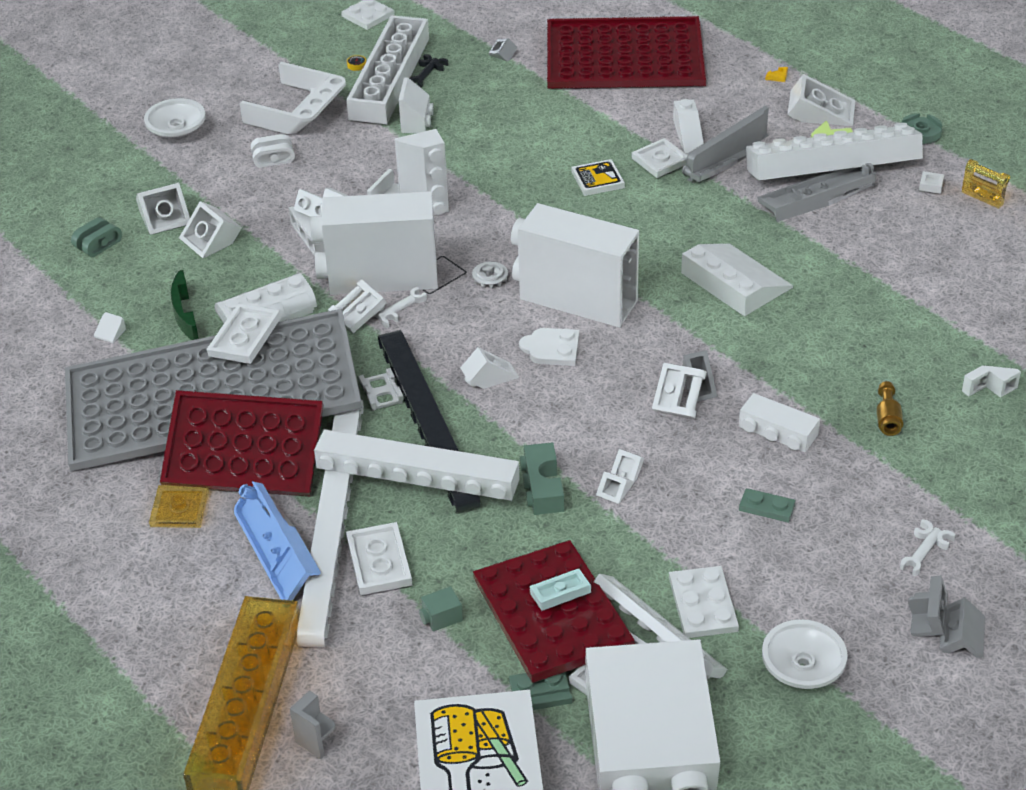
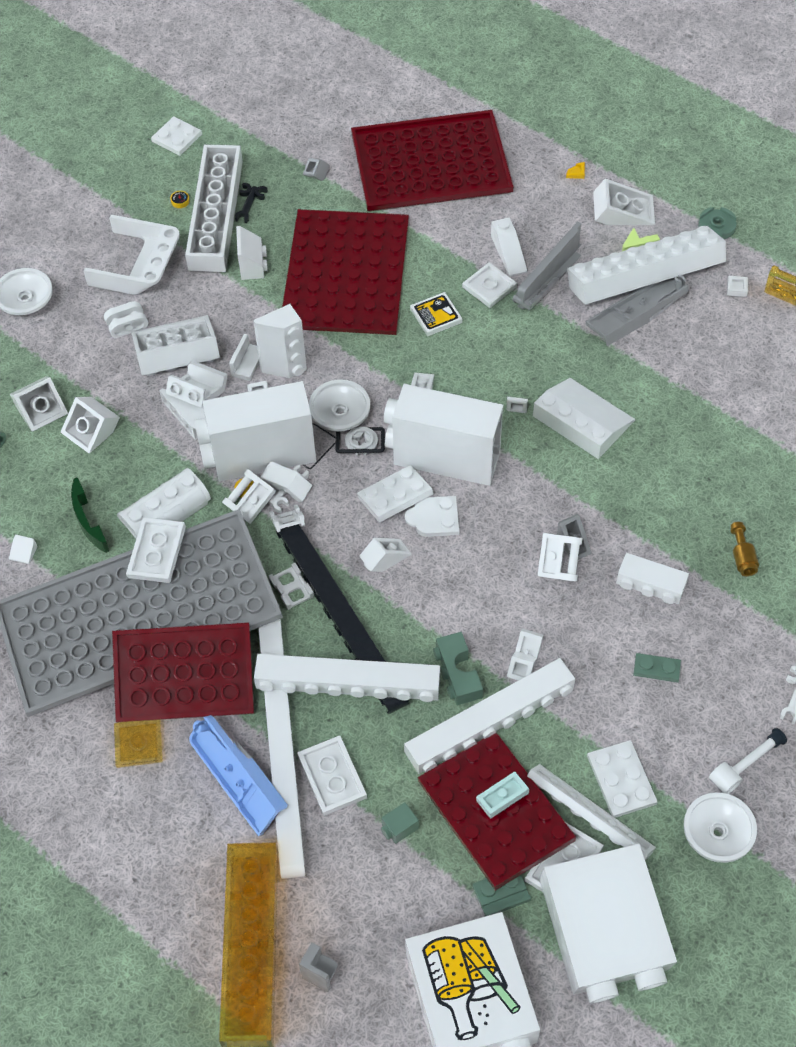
camera: 10 degrees left, 15 degrees up
(316, 176) = (175, 345): none -> white slope
(402, 295) = (287, 479): none -> white slope
(404, 327) = (296, 516): none -> white piece
(473, 238) = (339, 397): none -> white dish
(481, 280) = (337, 444): none -> black piece
(513, 134) = (347, 270): none -> dark red plate
(513, 321) = (395, 493): none -> white plate
(567, 522) = (489, 716): none -> white brick
(665, 258) = (517, 404): none -> white slope
(827, 612) = (728, 777): none -> white piece

